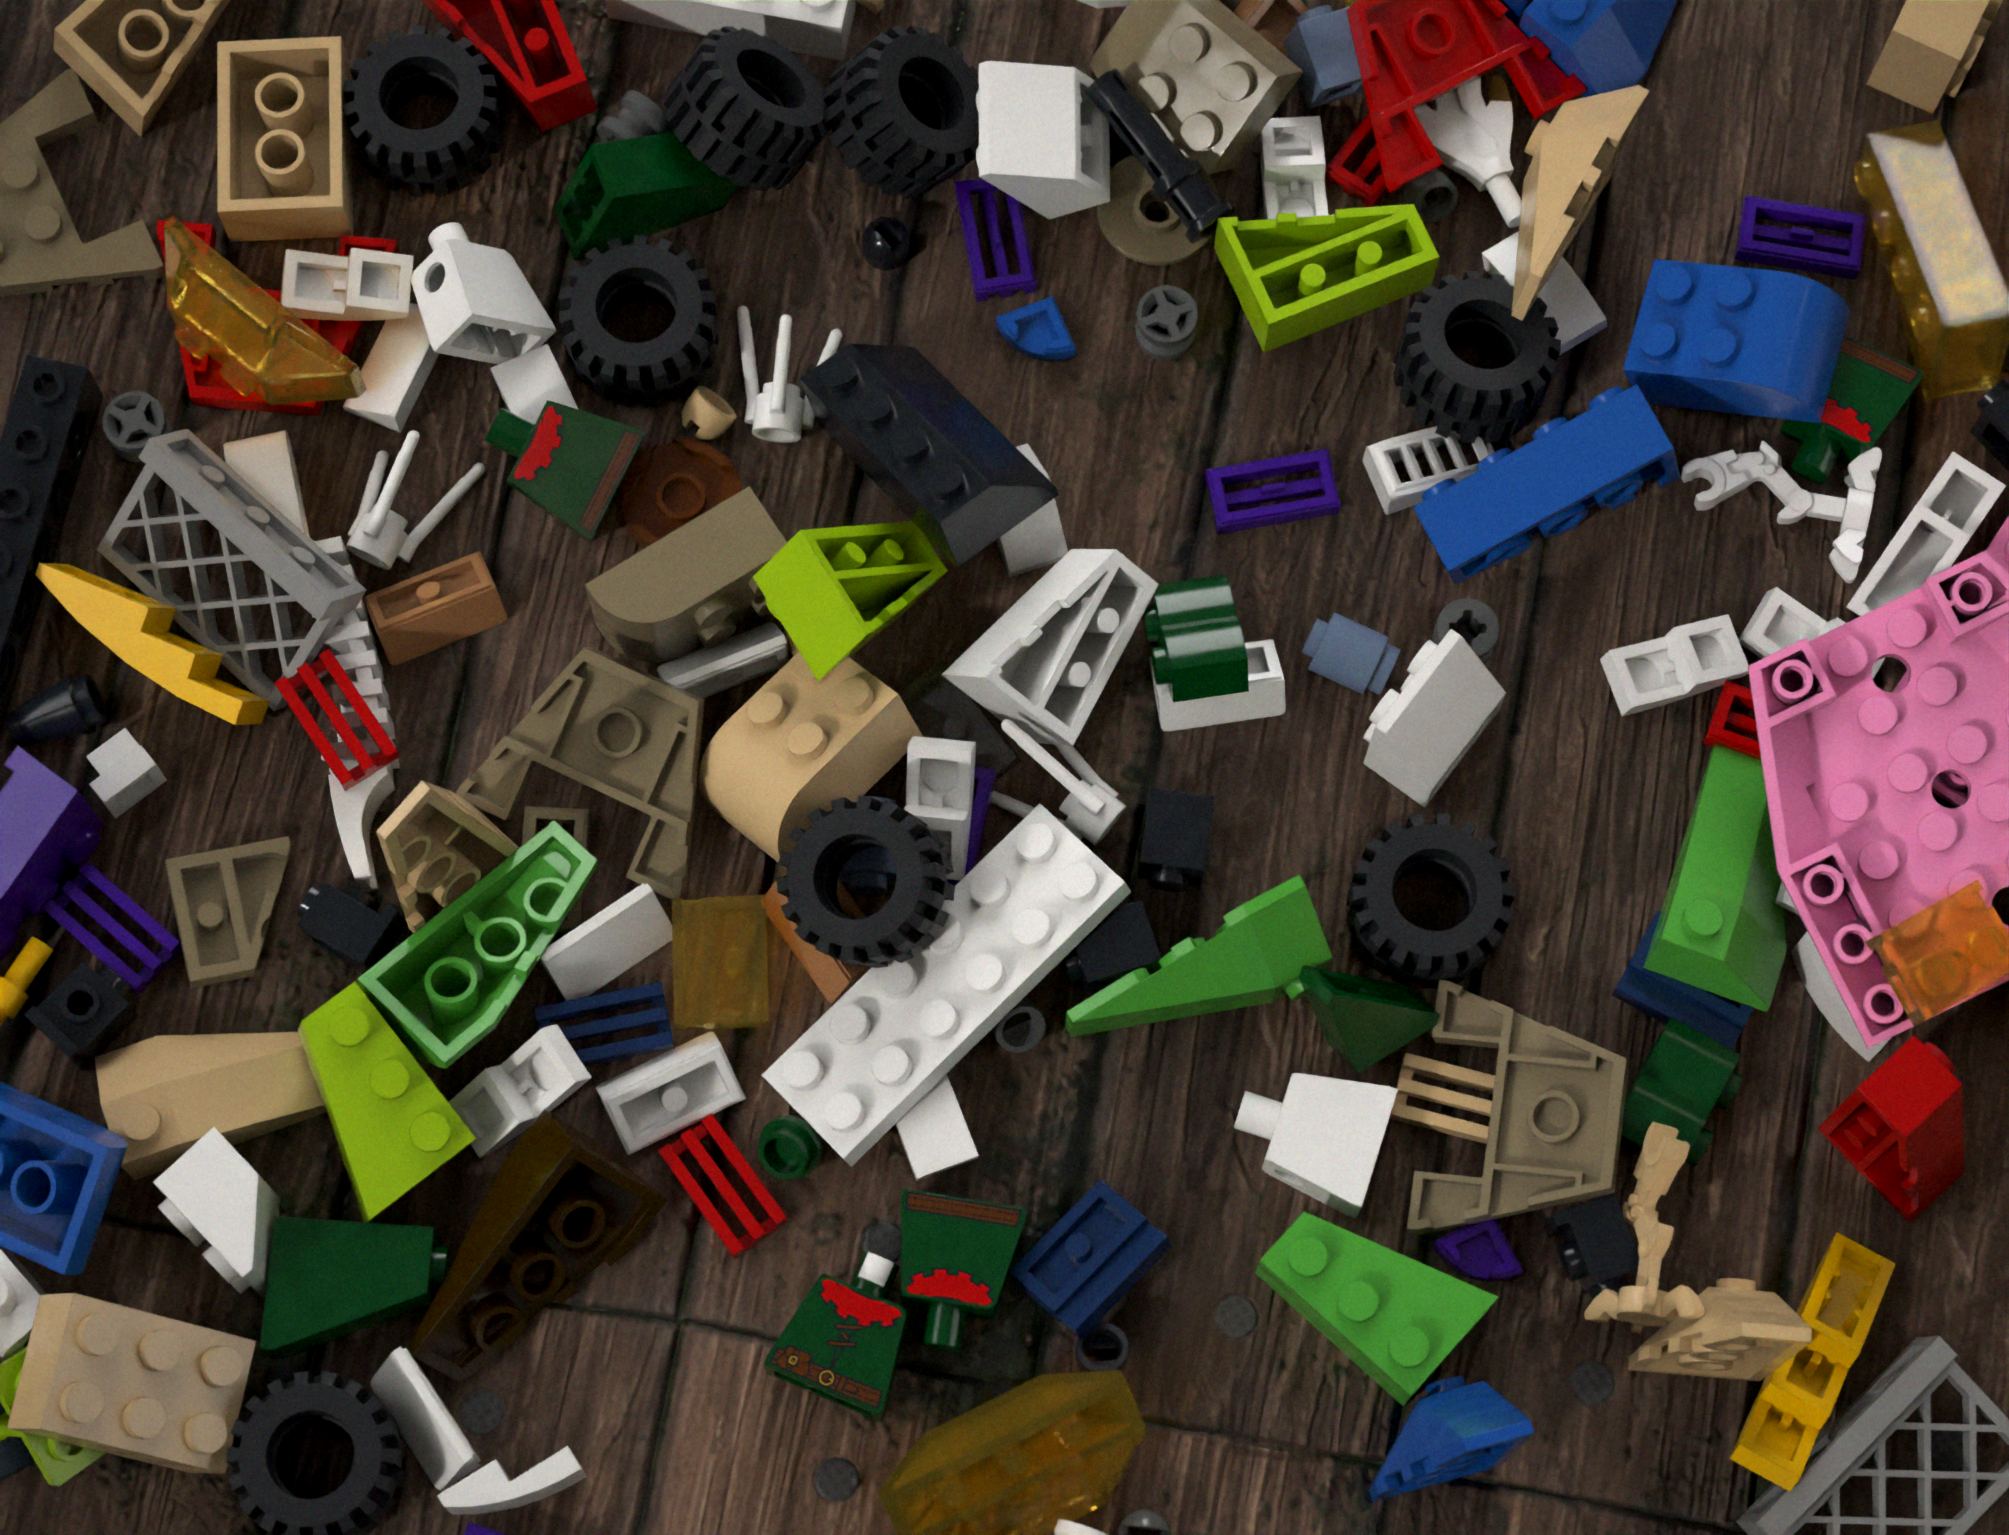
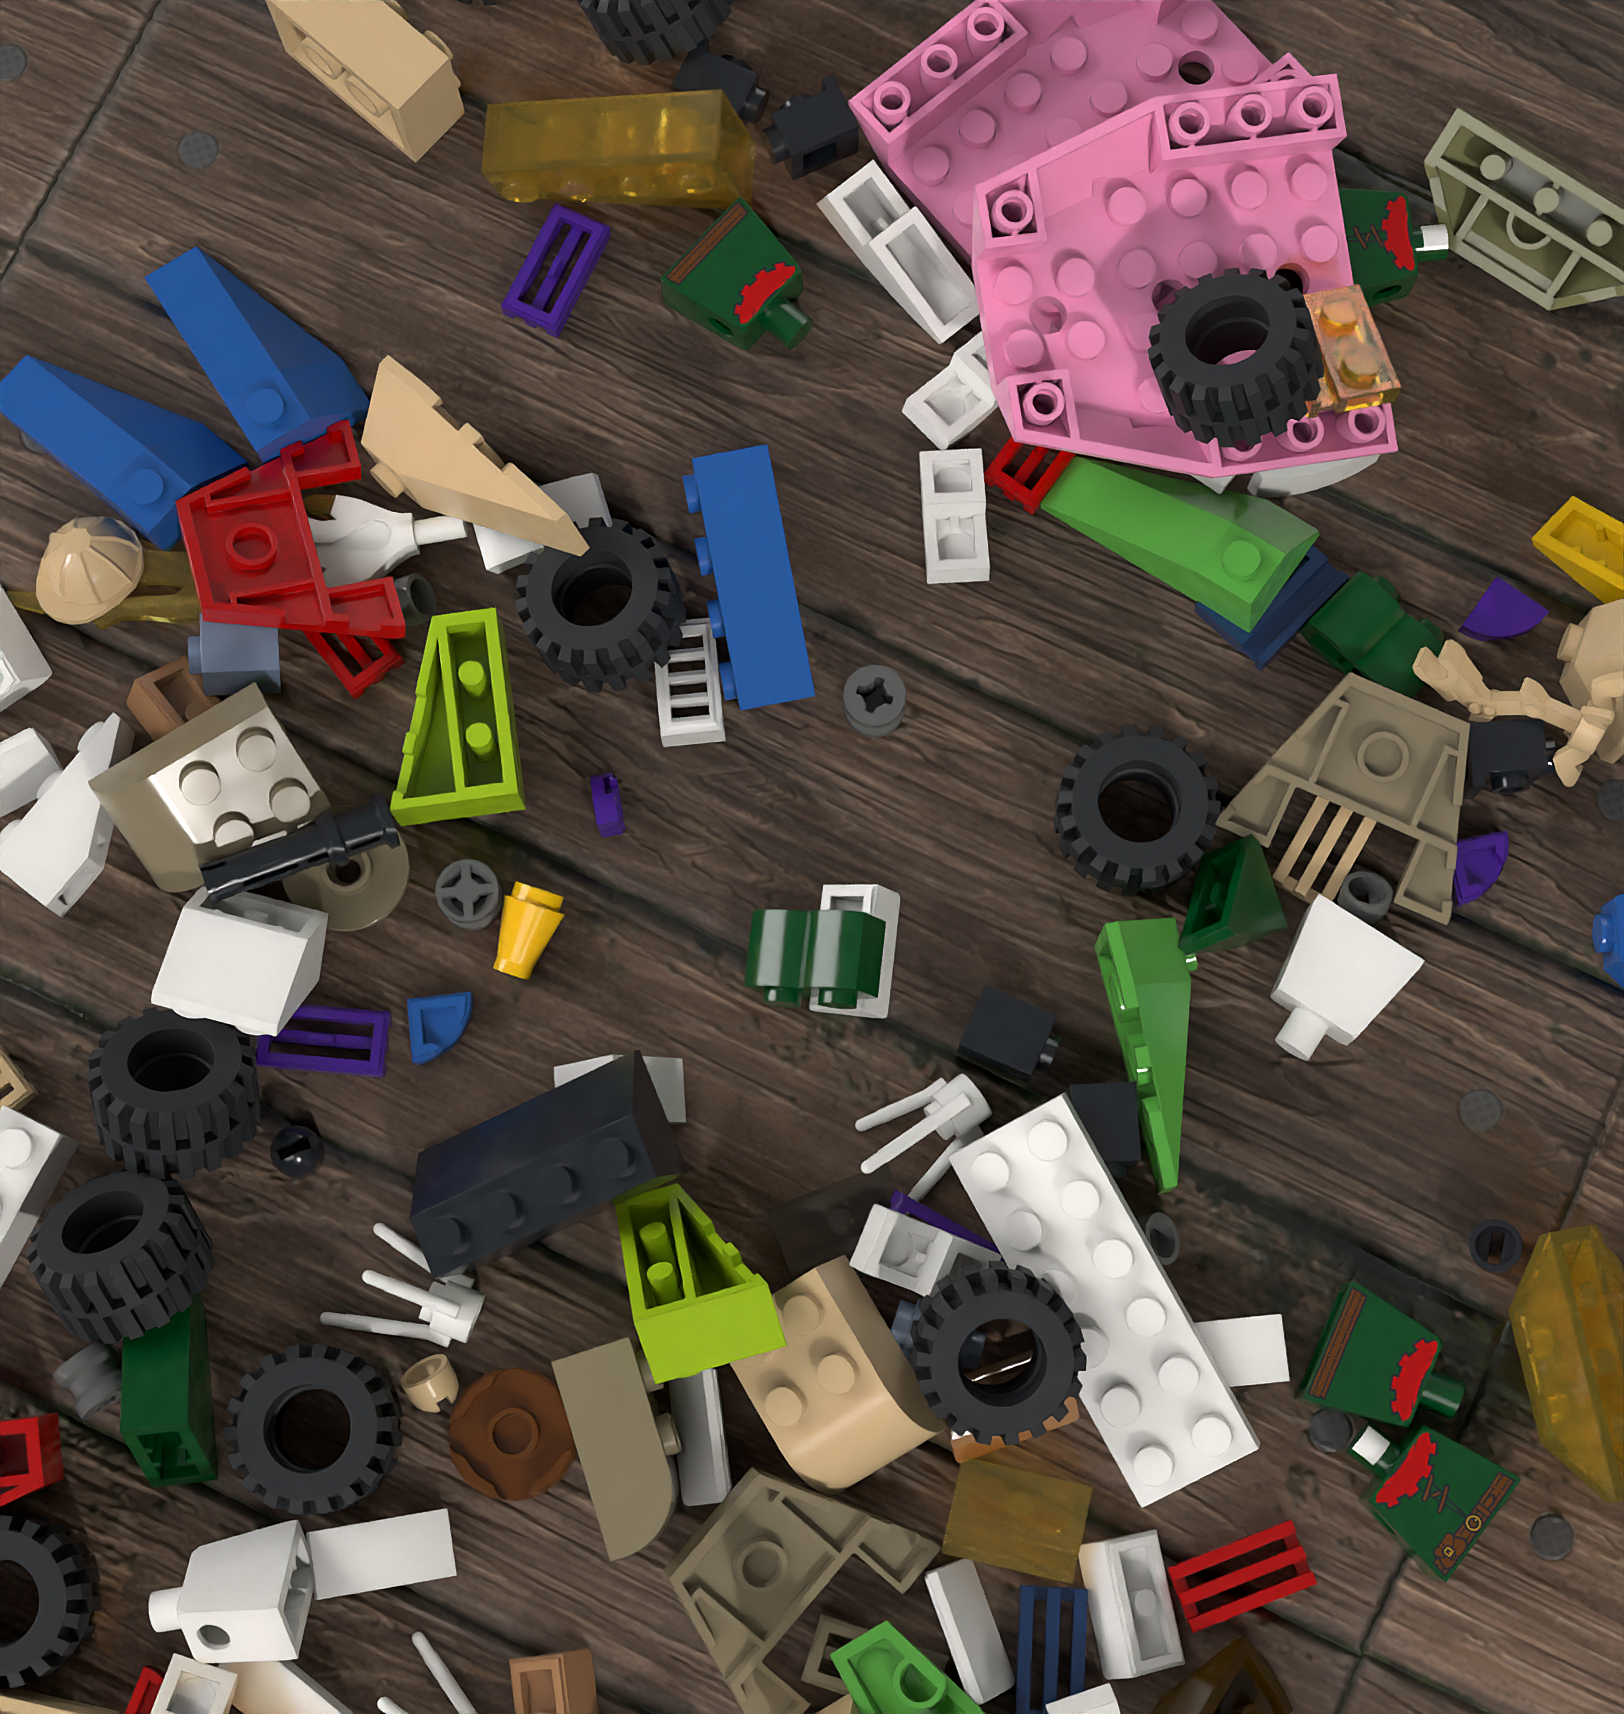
camera: 70 degrees left, 5 degrees up
(567, 461) = (451, 1544): dark green torso -> none
(789, 1148) = (1223, 1500): dark green plate -> none
(1057, 645) = (785, 1094): white wedge -> none
(1090, 1259) = (1406, 1233): dark blue plate -> none
(1150, 380) = (526, 928): none -> yellow cone
(1278, 513) = (668, 895): dark purple tile -> none
(1288, 420) = (607, 804): none -> dark purple tile
(1293, 167) = (348, 726): white slope -> none
(1350, 654) = (864, 814): sand blue brick -> none
(1373, 1302) = (1513, 974): bright green wedge -> none
(1408, 1131) = (1376, 893): none -> dark grey hinge
(1434, 720) = (957, 755): white slope -> none
(1734, 472) = (851, 307): white piece -> none
(1736, 340) = (660, 356): blue brick -> none
(1746, 1219) = (1502, 614): none -> dark purple tile
(1897, 844) = (1226, 318): none -> black tyre
(1904, 1127) = (1460, 448): red wedge -> none

